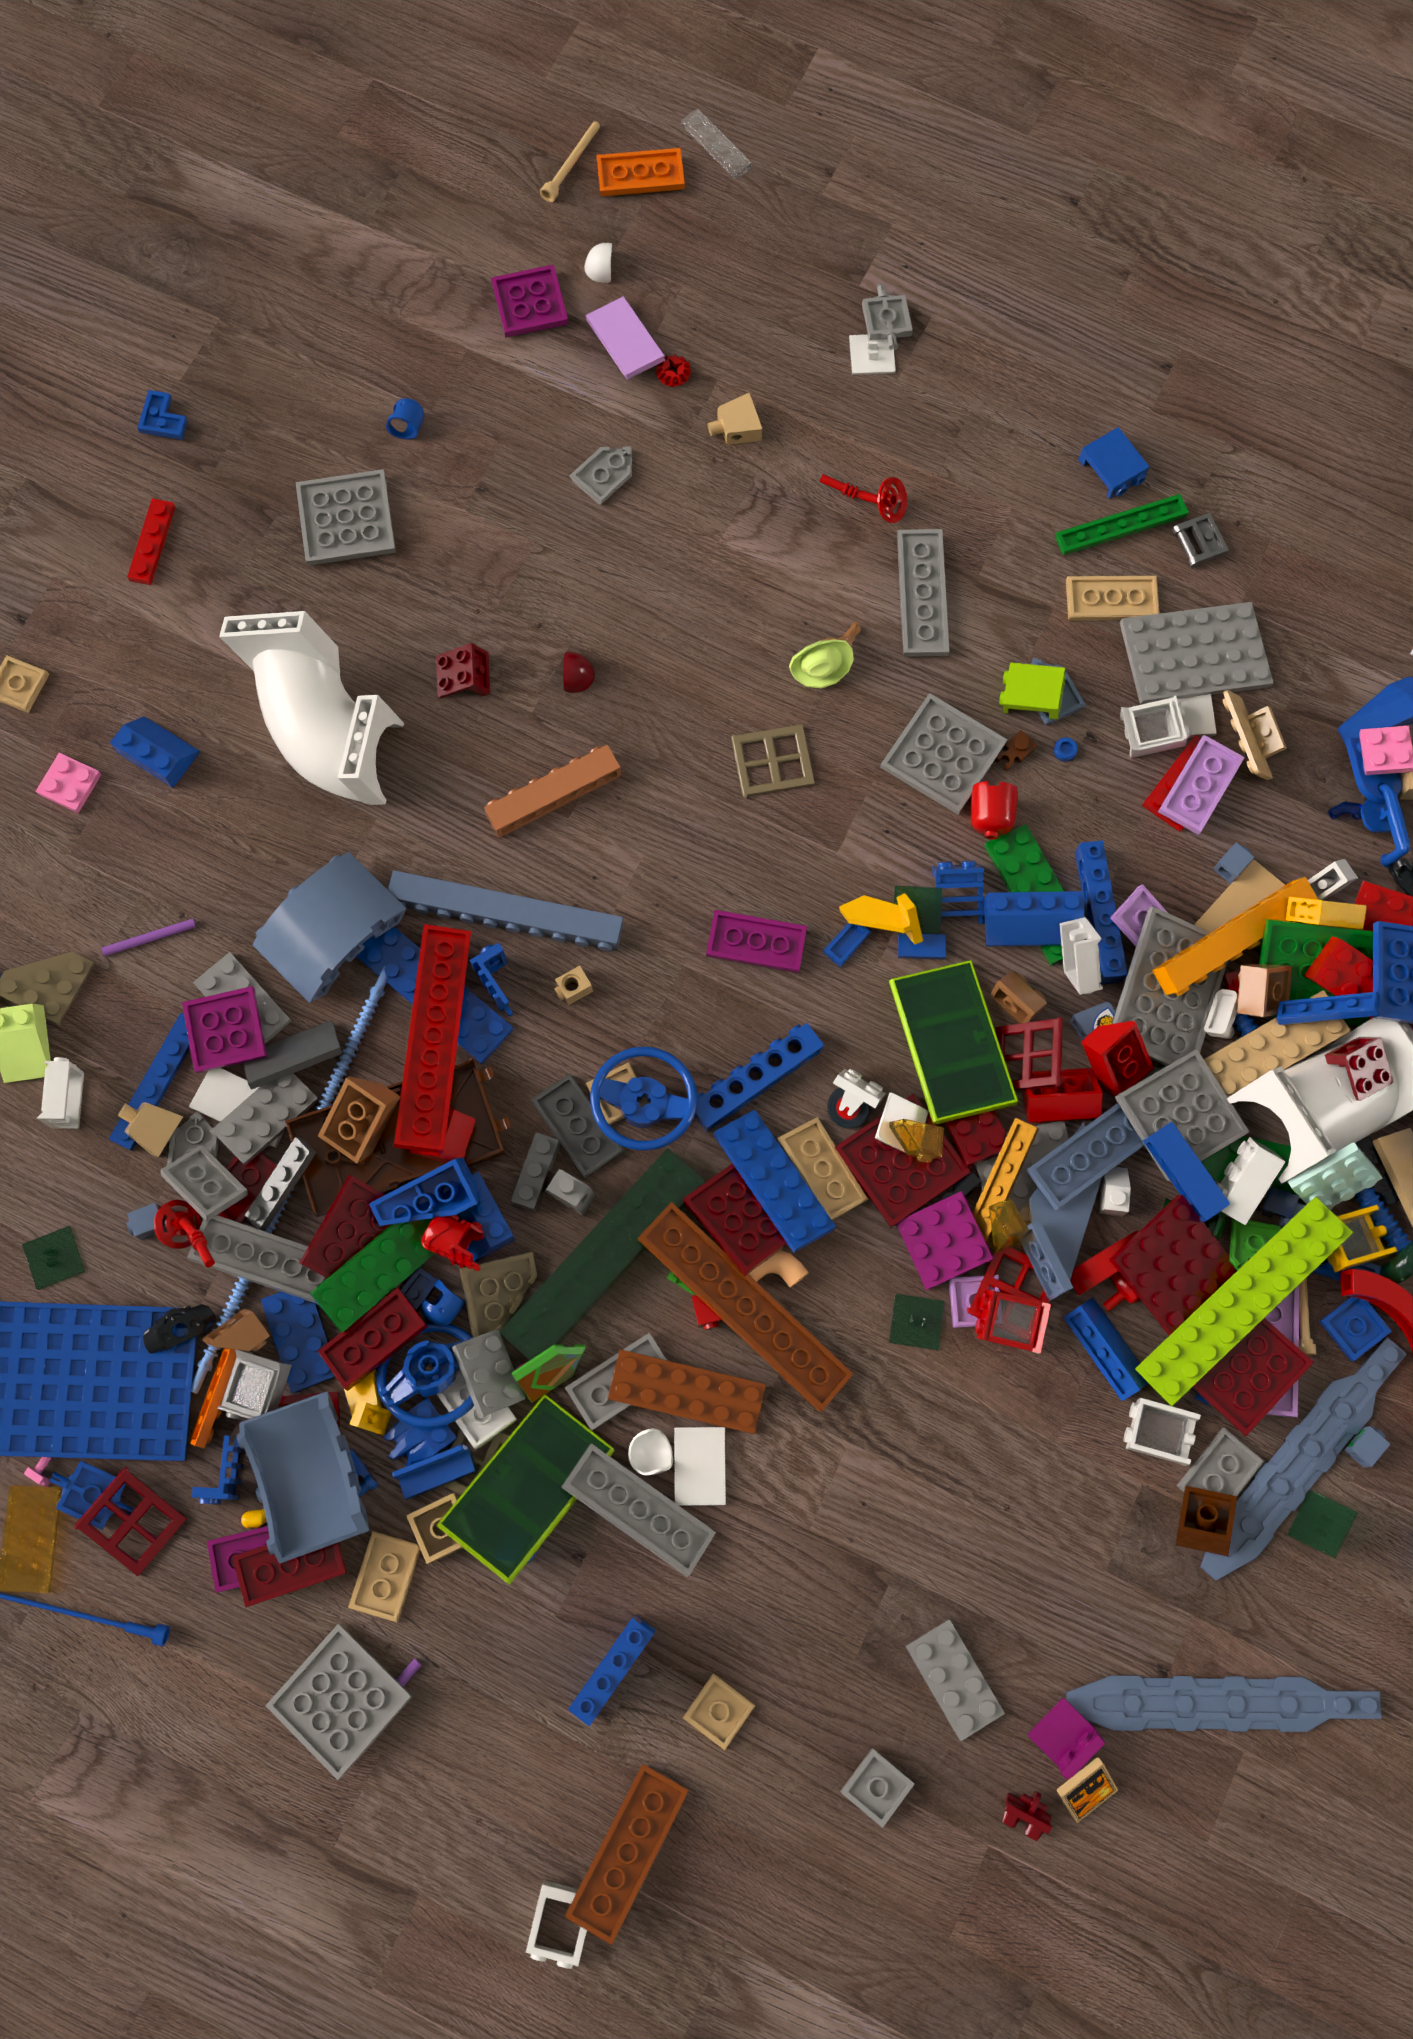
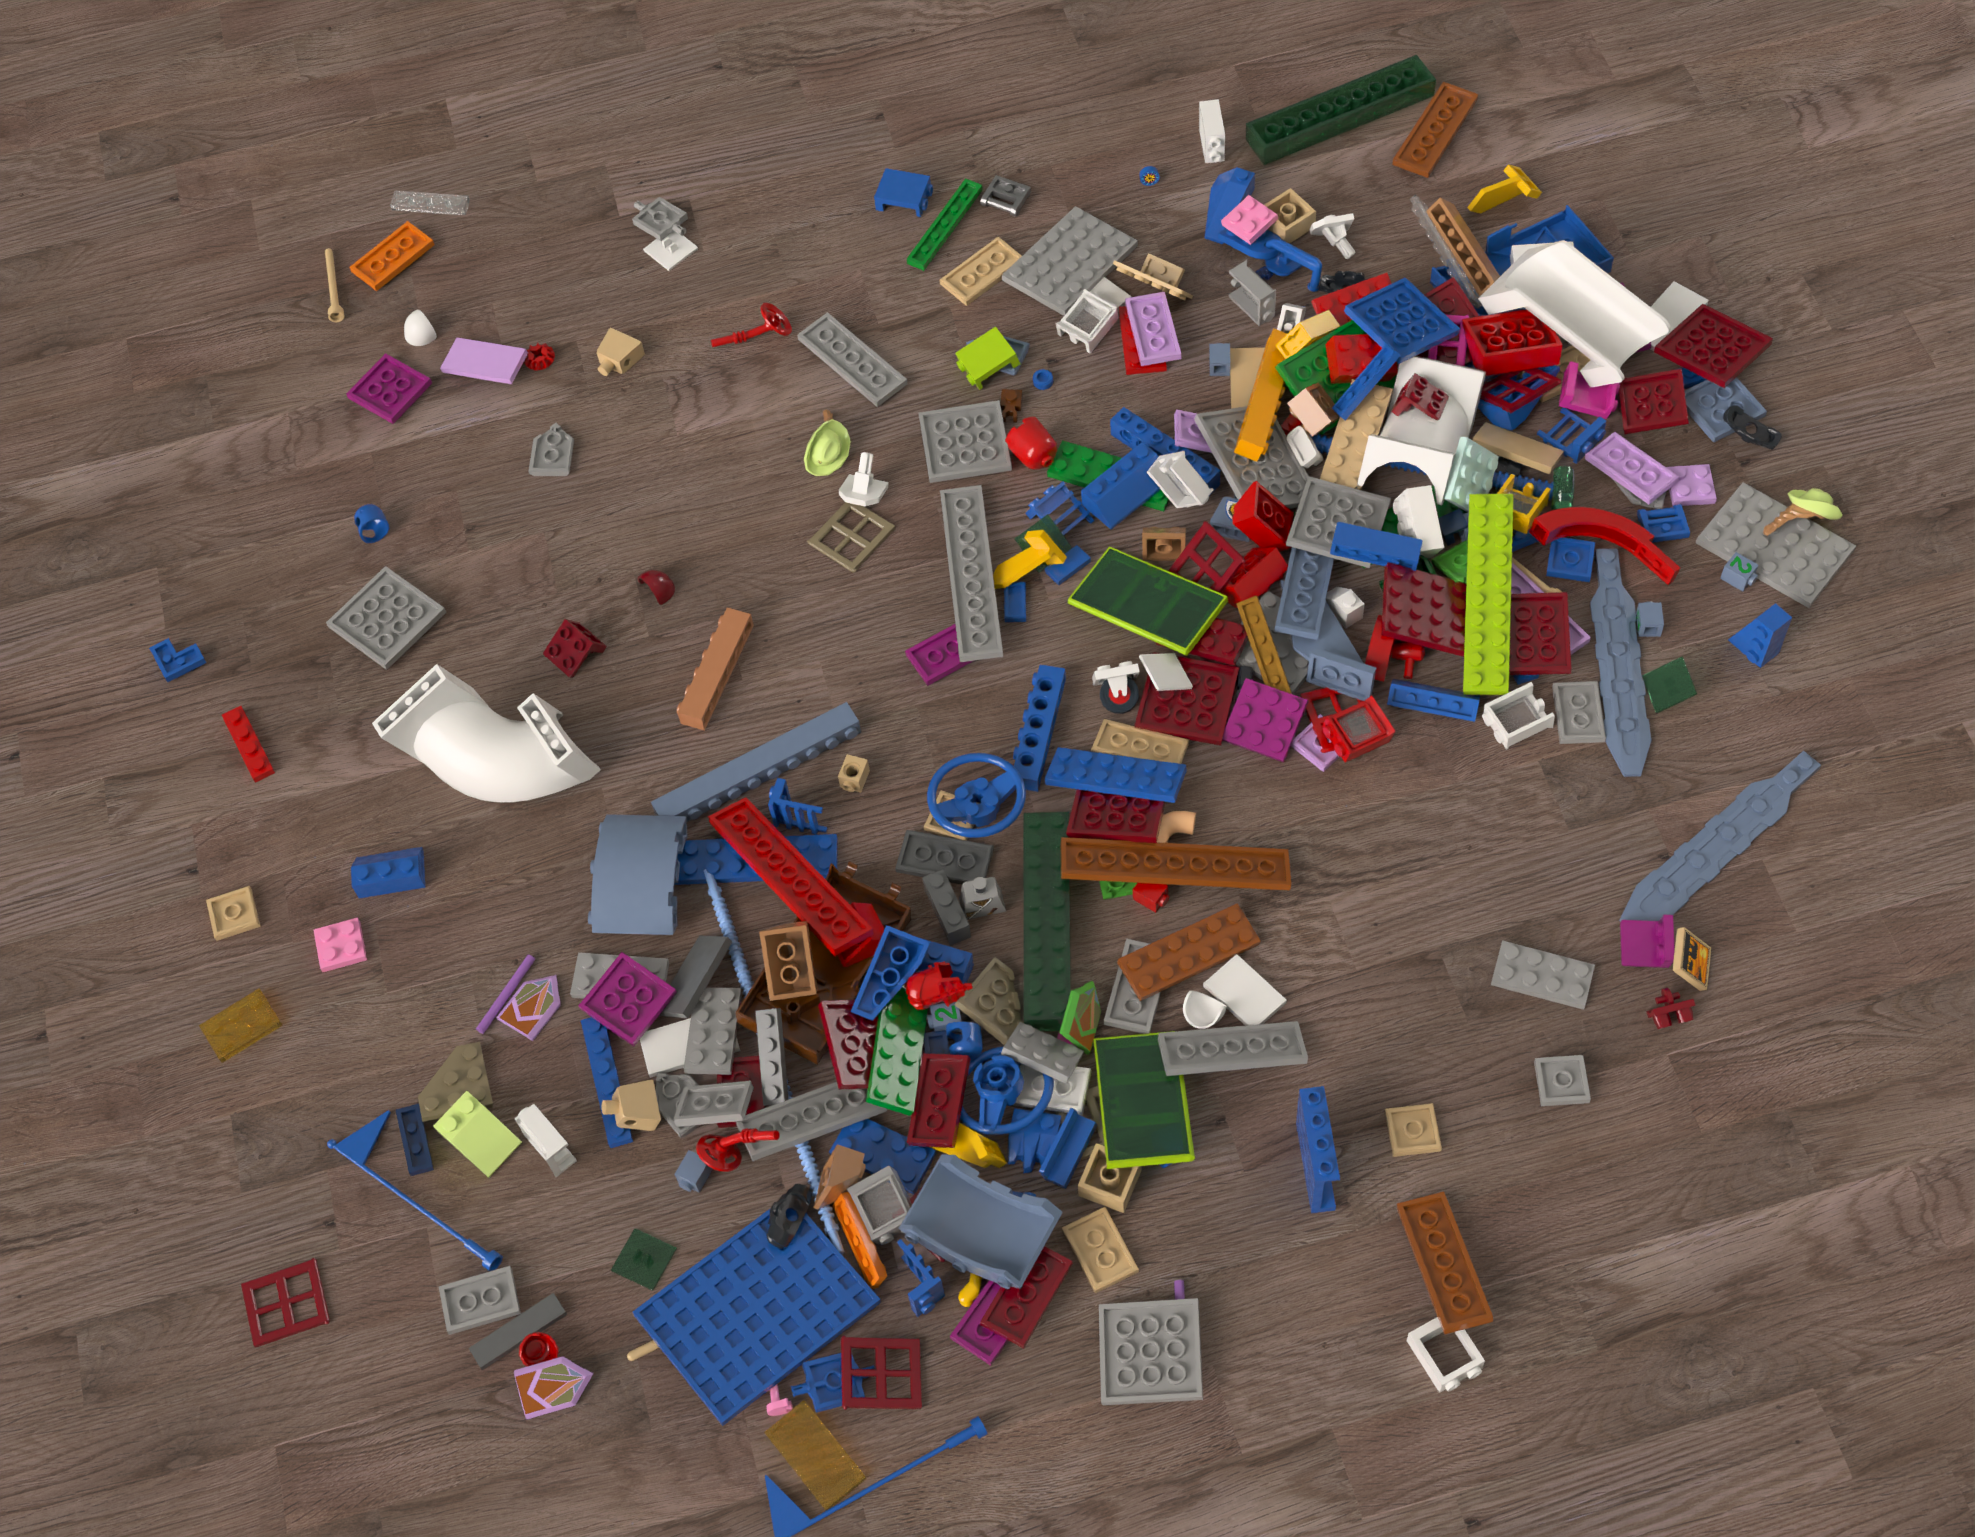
camera: 35 degrees left, 15 degrees down
(158, 966) = (532, 1006): none -> tile
(443, 1269) = (943, 1015): none -> sand blue brick
(817, 724) = (861, 487): none -> white piece
(831, 885) = (971, 574): none -> light grey plate
(916, 1322) = (1296, 787): clear green piece -> none
(918, 1139) = (1185, 669): clear yellow slope -> none
(1006, 1225) = (1296, 674): clear yellow slope -> none
(1206, 1520) = (1599, 741): reddish brown slope -> none
(1321, 825) = (1254, 295): none -> light grey window
(1345, 626) = (1149, 176): none -> tile

